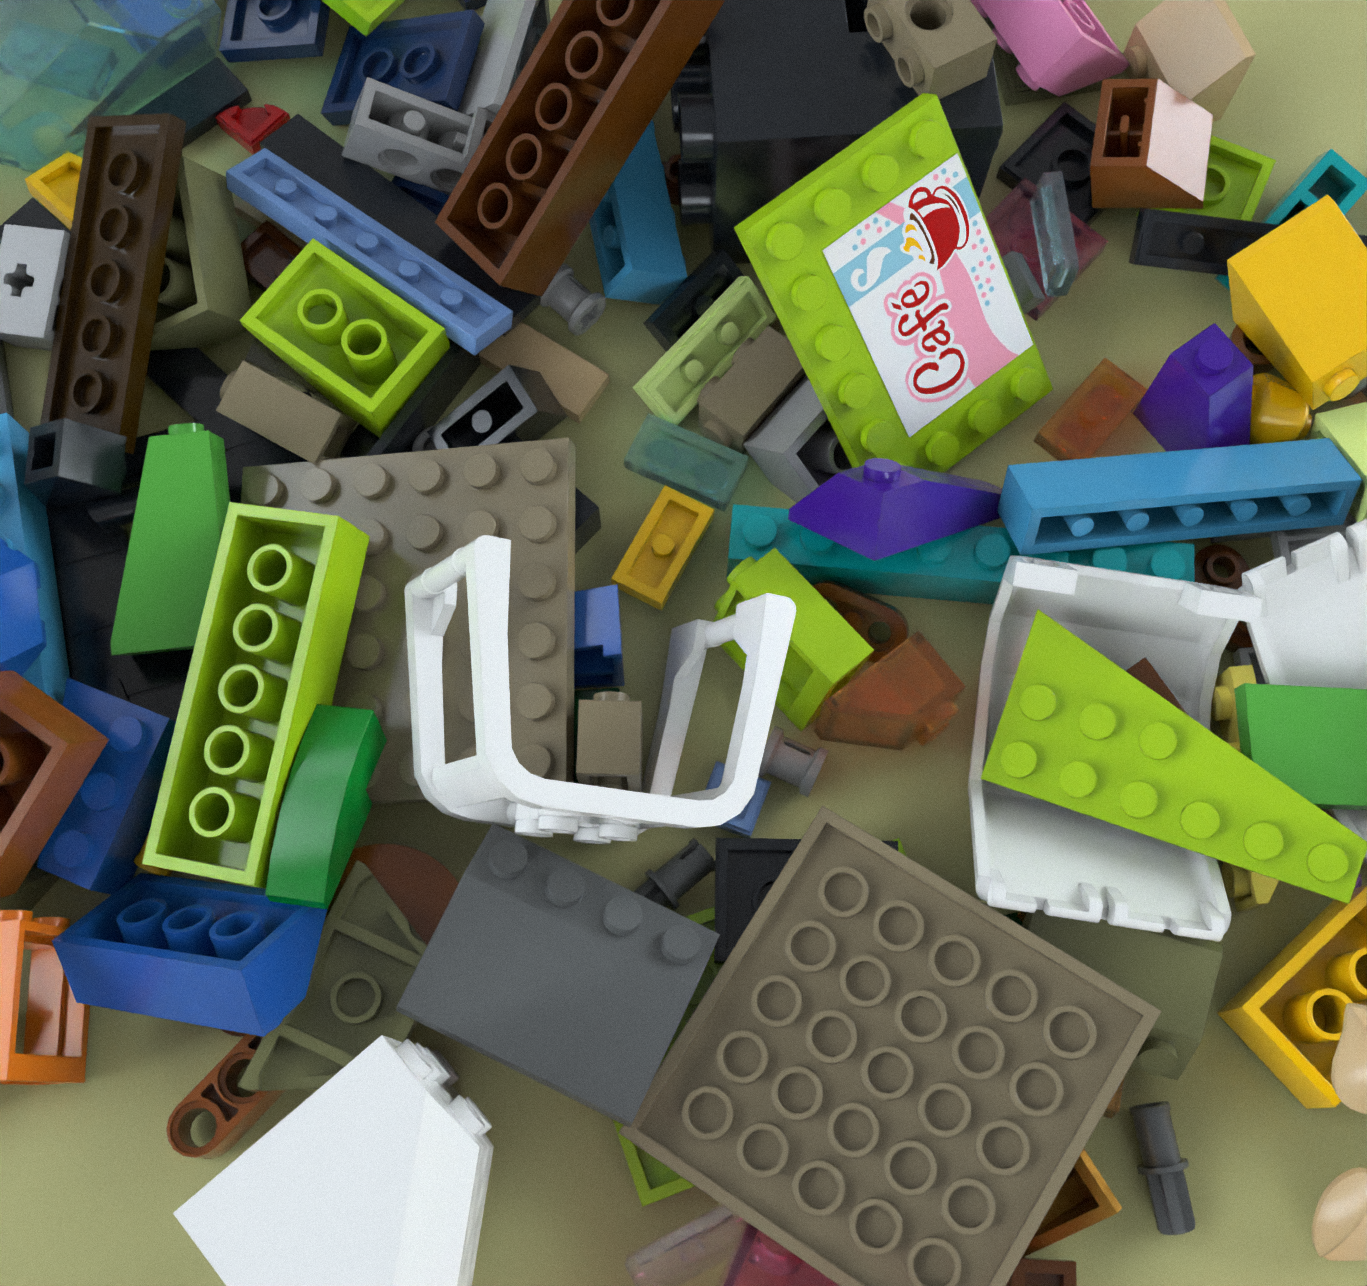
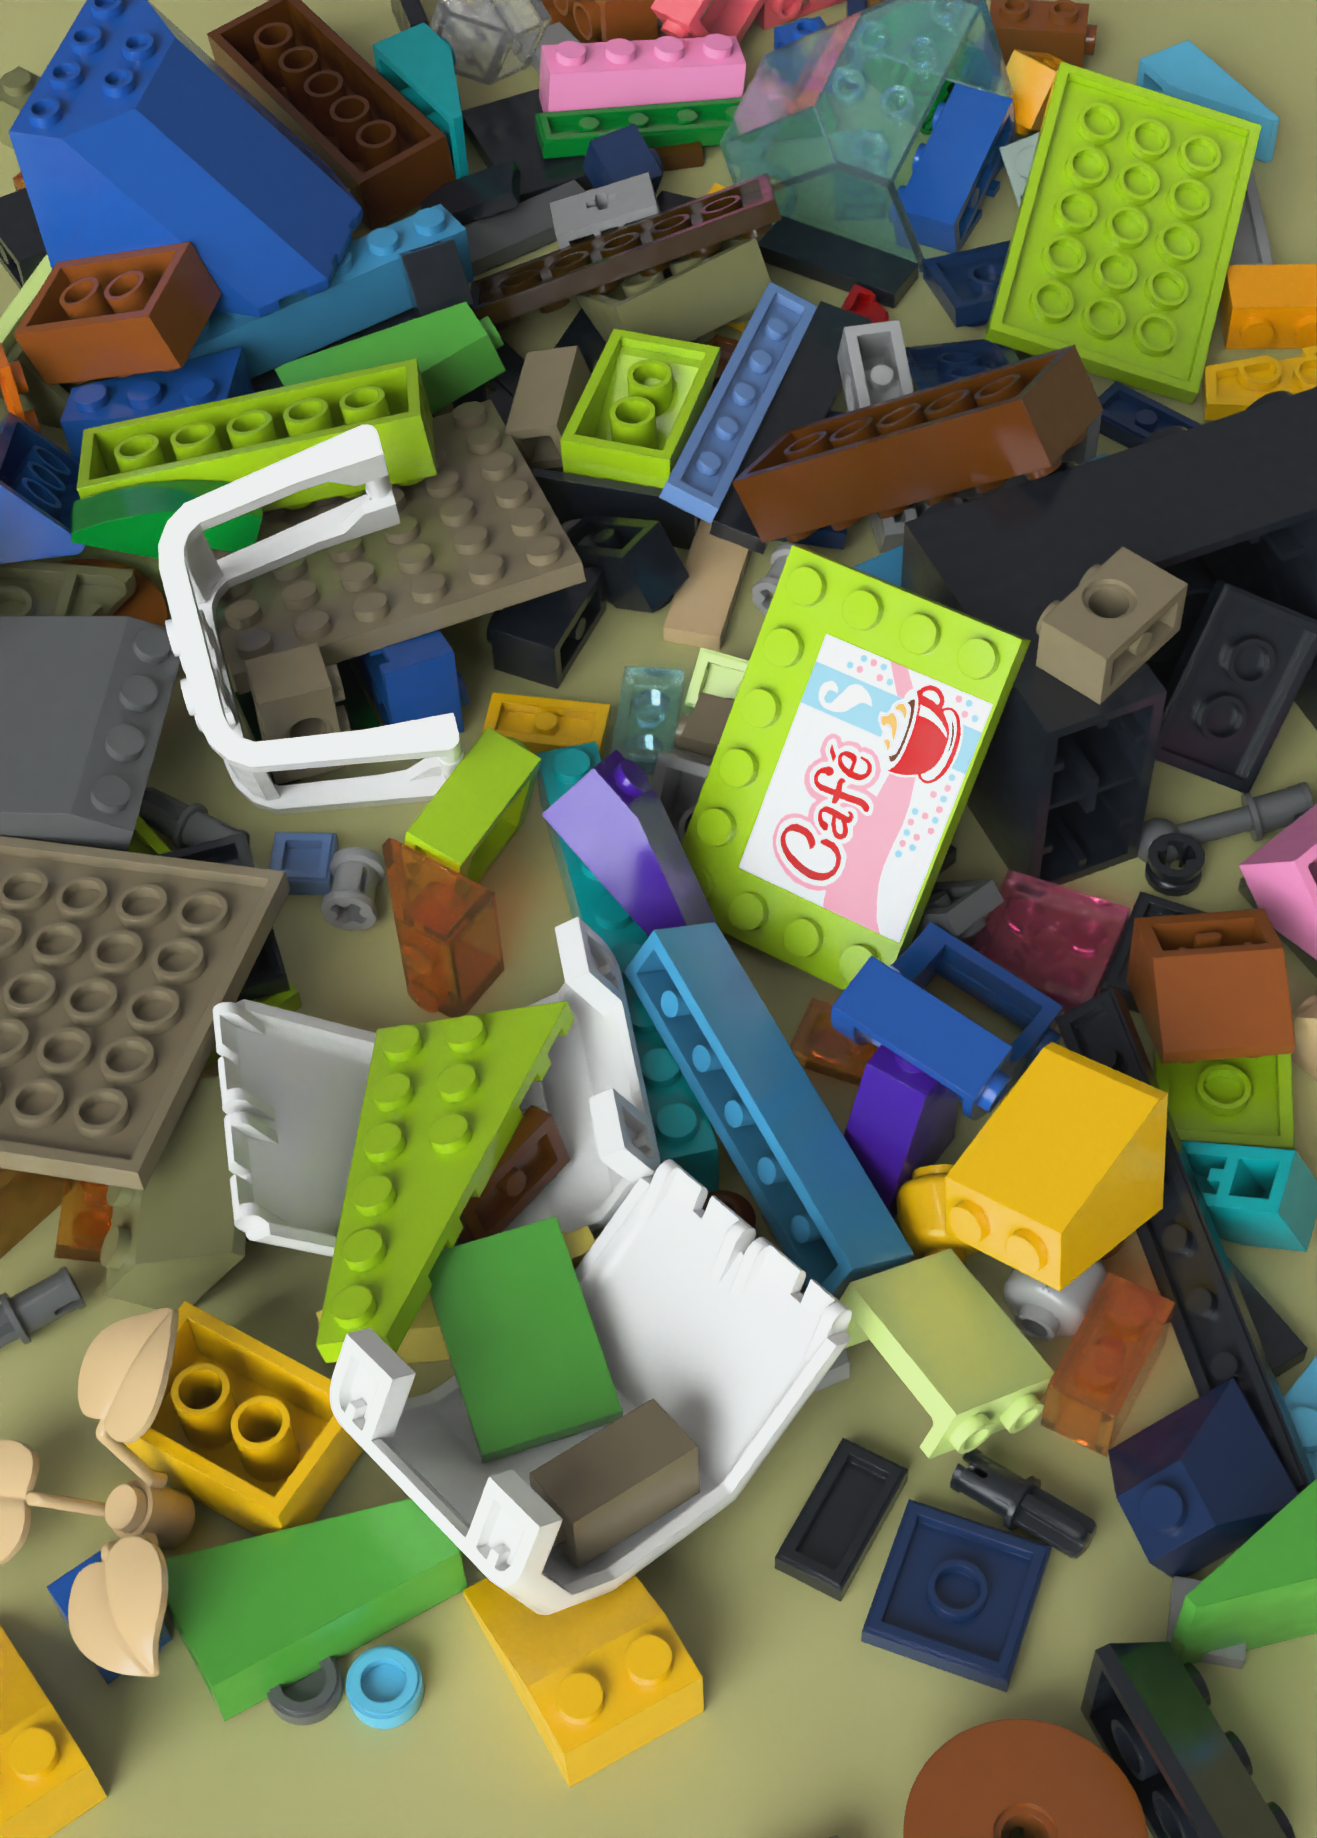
camera: 75 degrees right, 20 degrees down
(862, 611) = (526, 896): reddish brown plate -> none
(1054, 234) = (1053, 930): clear light blue tile -> none
(1184, 346) = (895, 1011): none -> blue window

